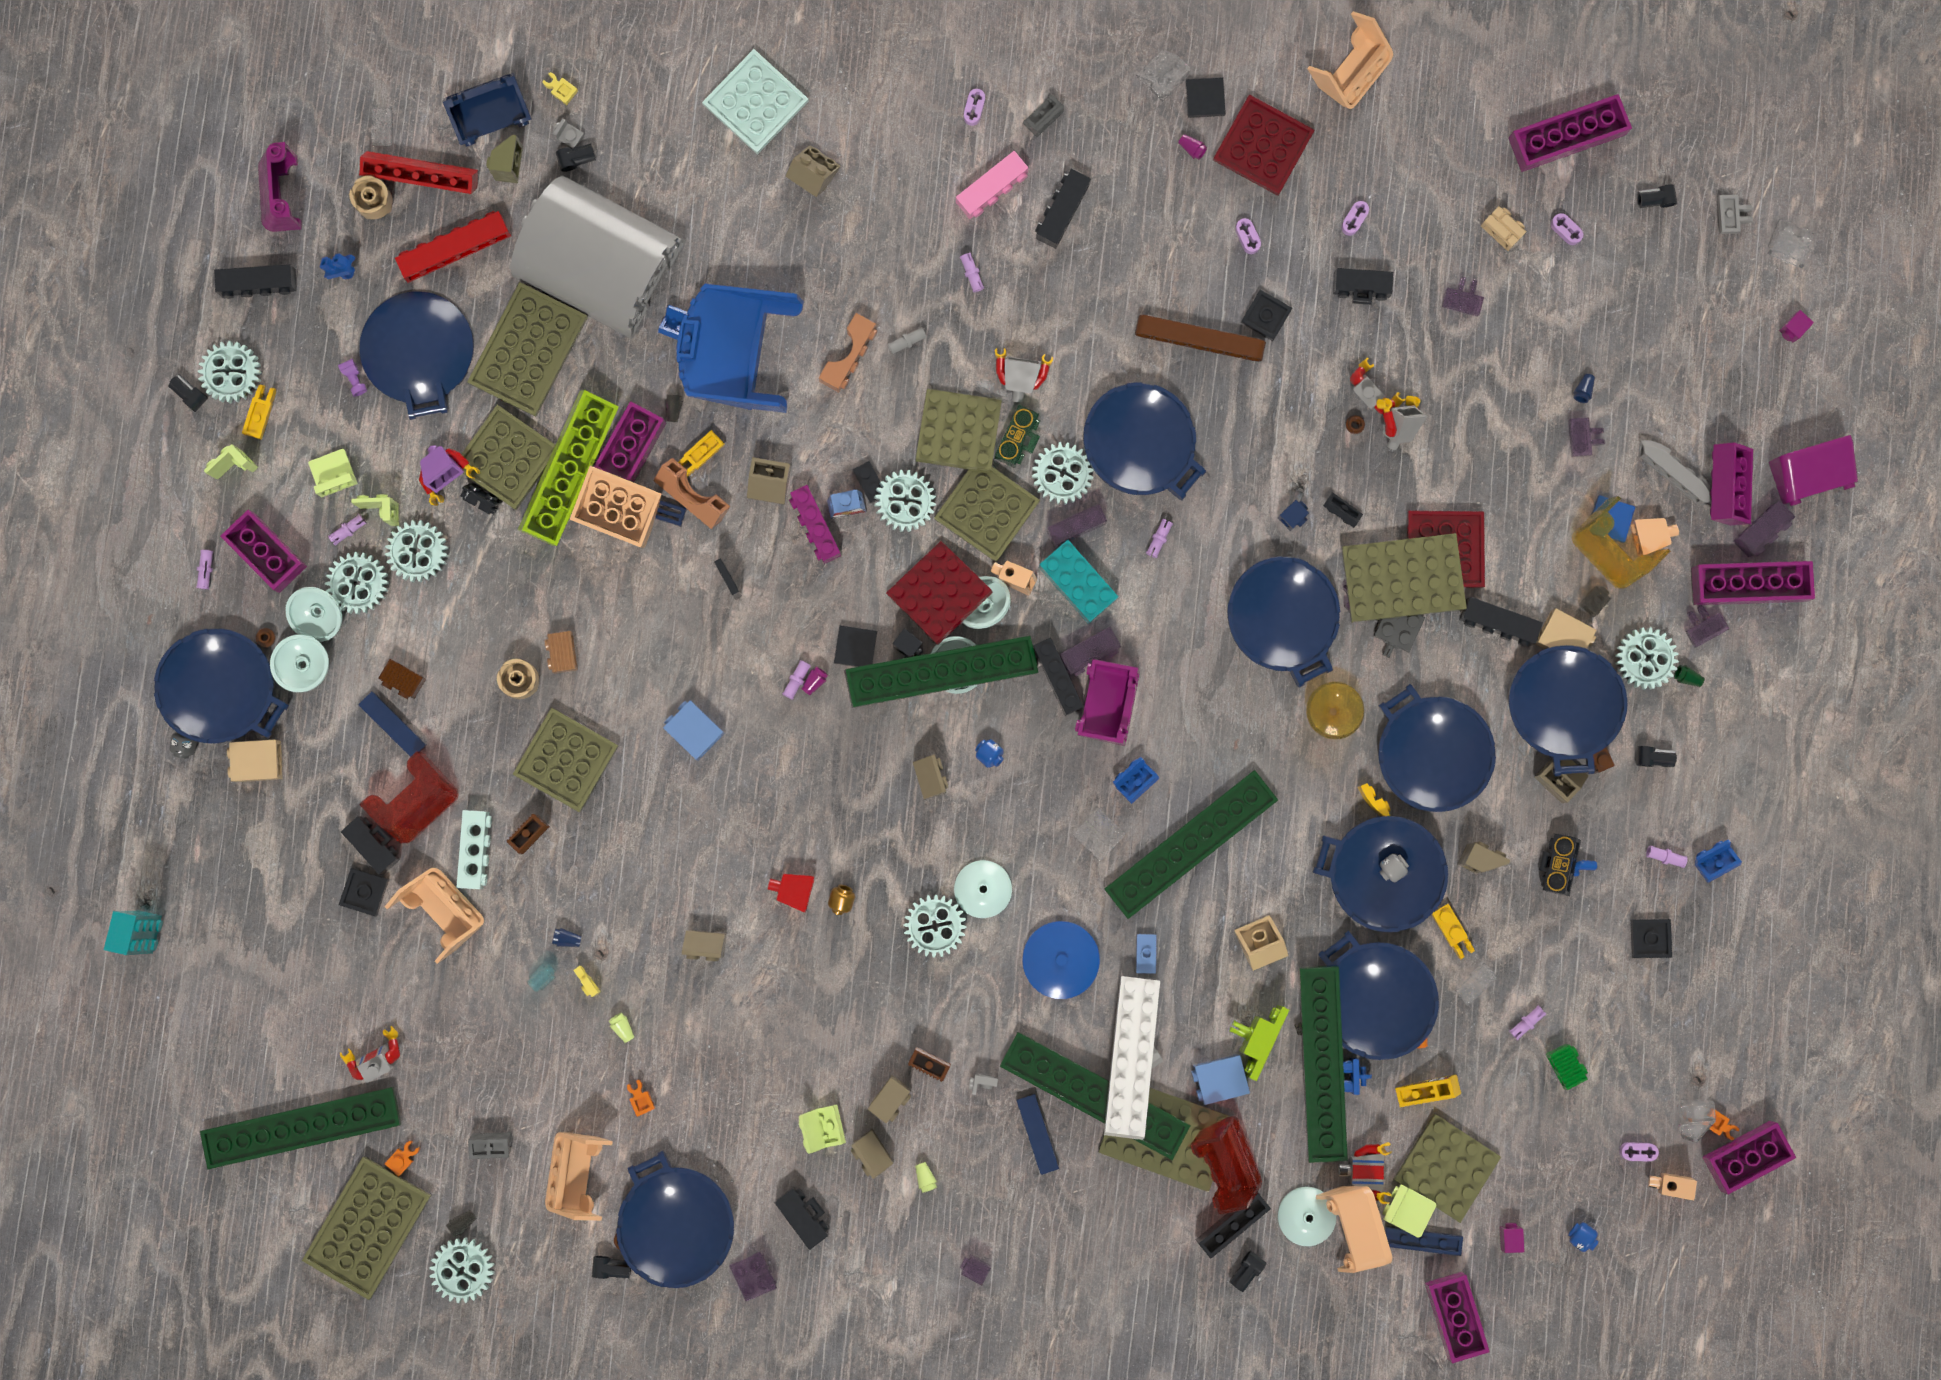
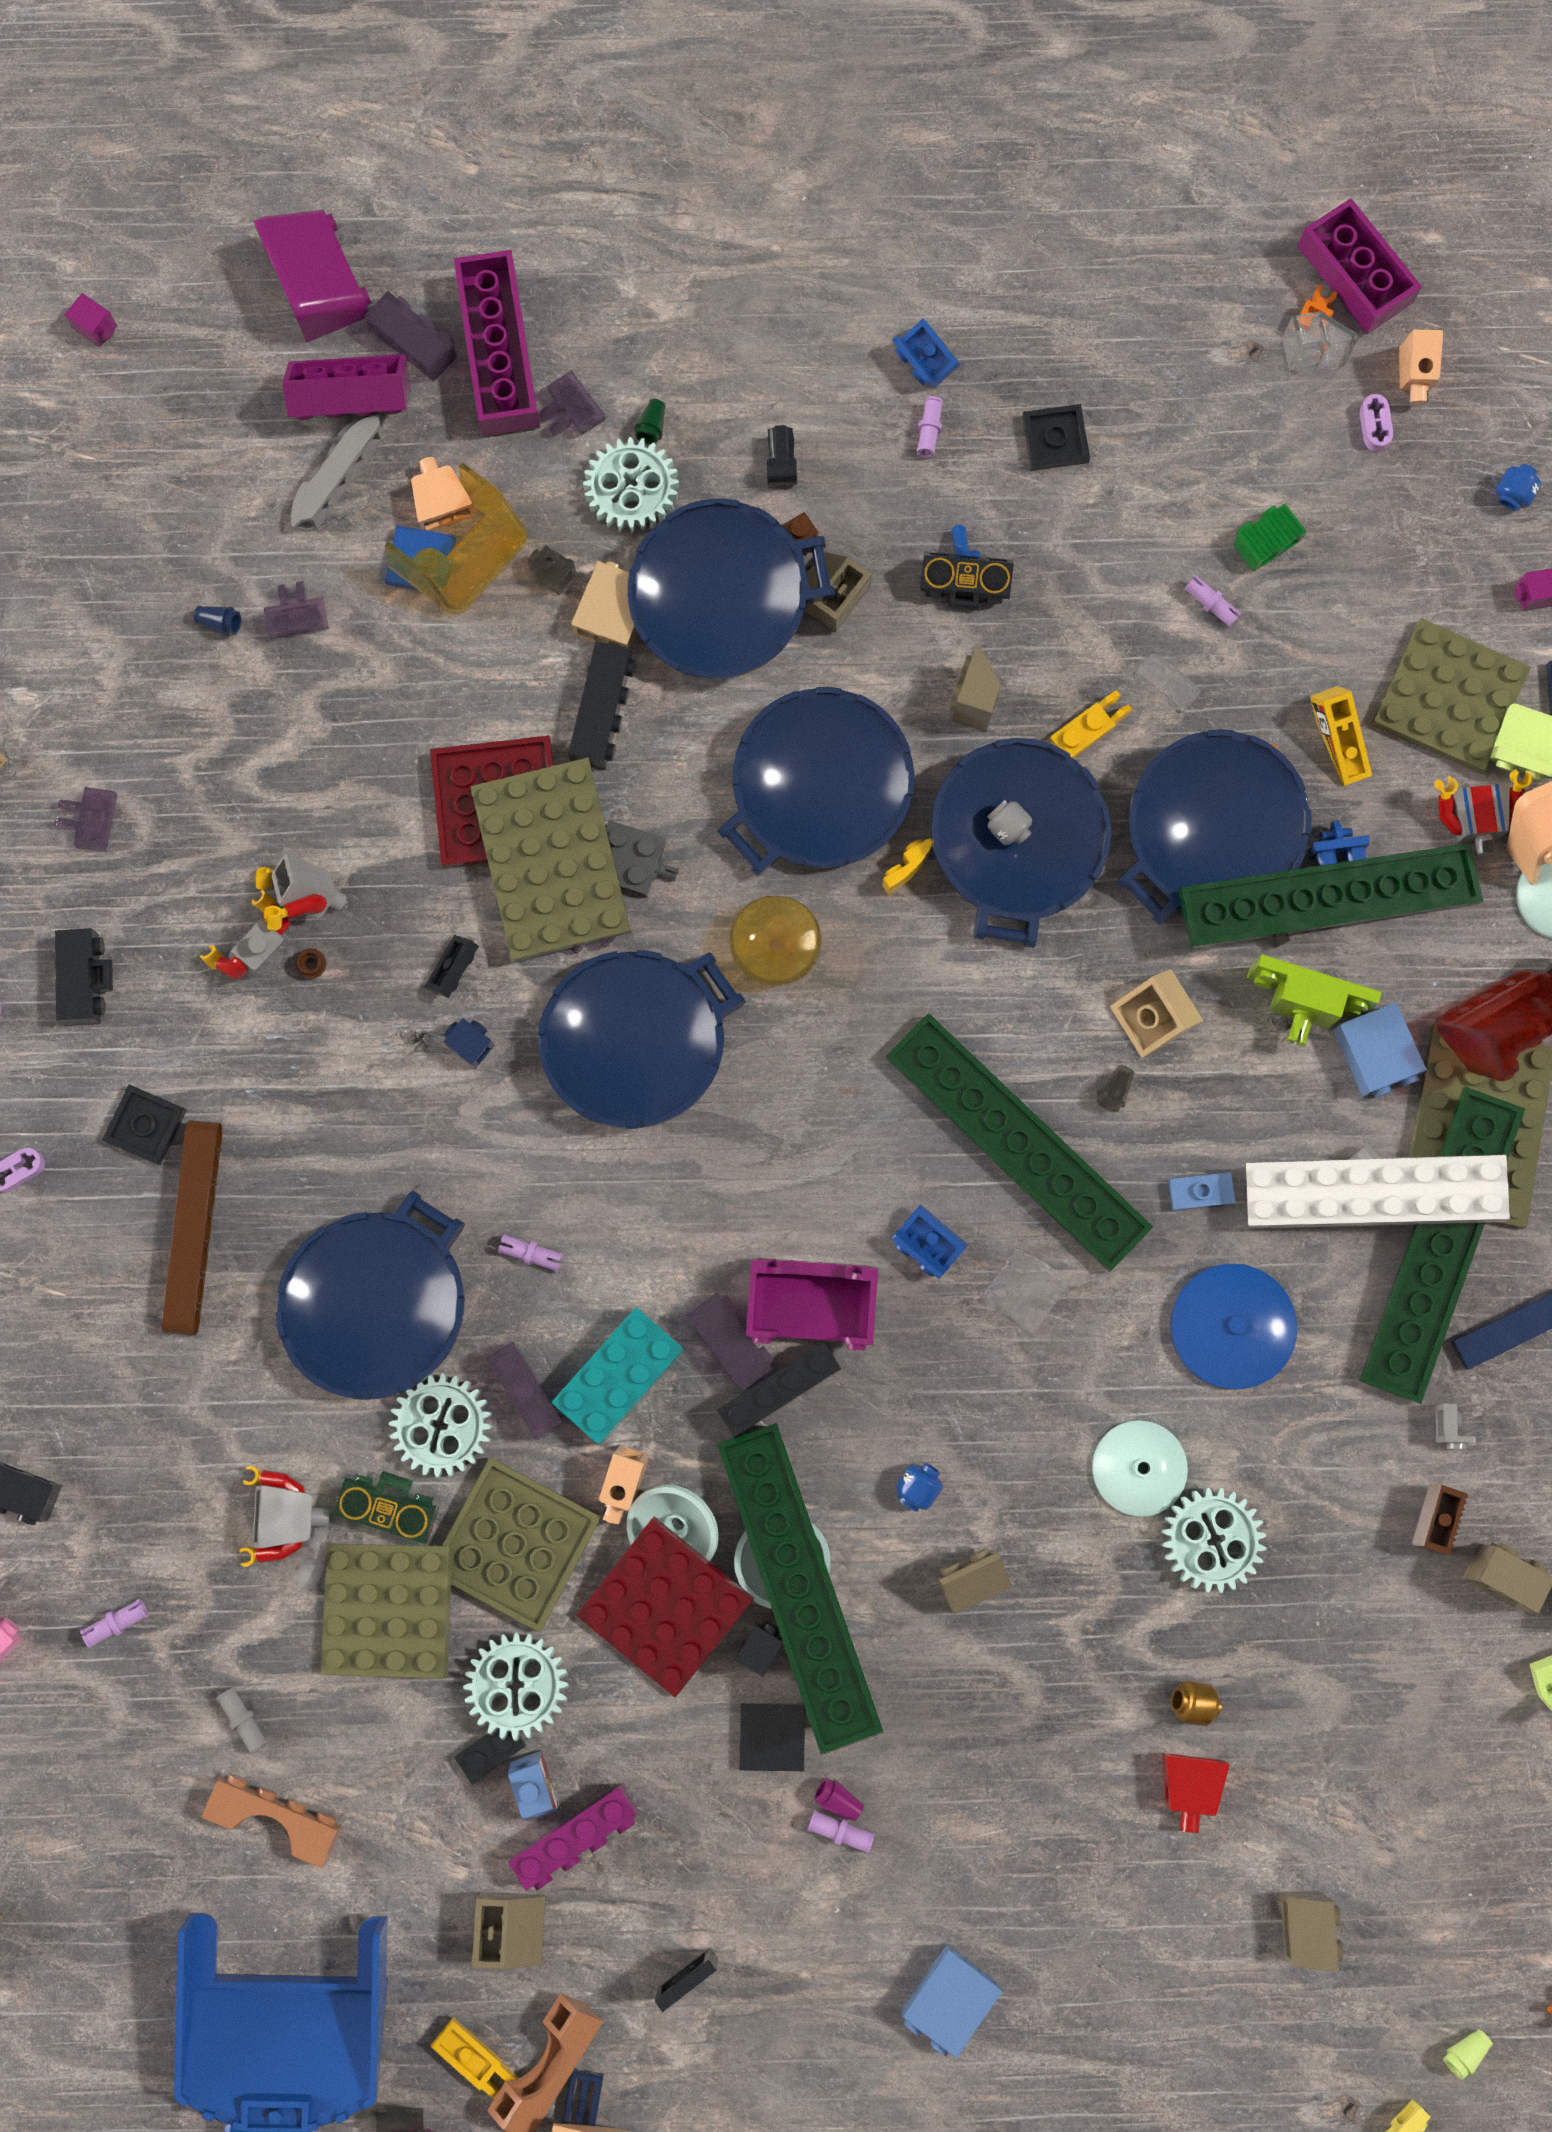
camera: 90 degrees left, 5 degrees down
(1216, 910) = (1115, 1090): none -> clear smoke cone

